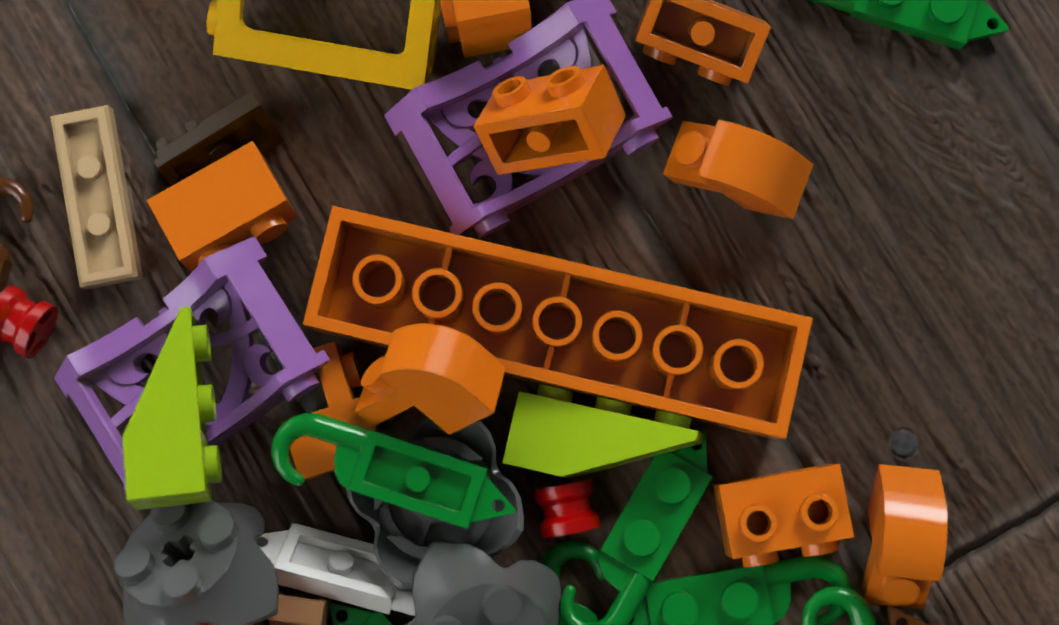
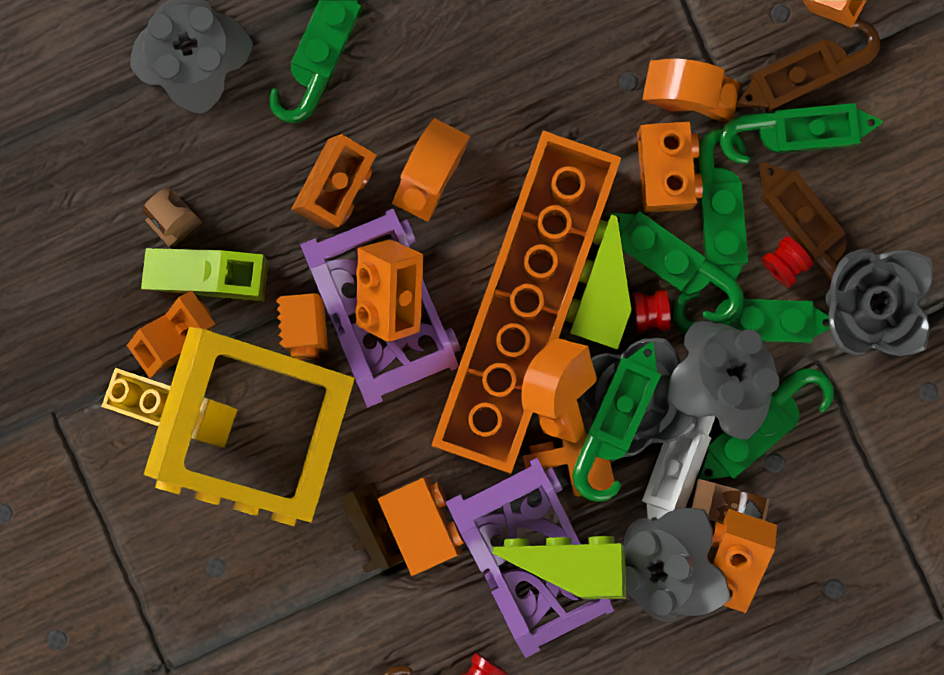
camera: 90 degrees left, 0 degrees up
(96, 197) = (398, 619): tan tile -> none

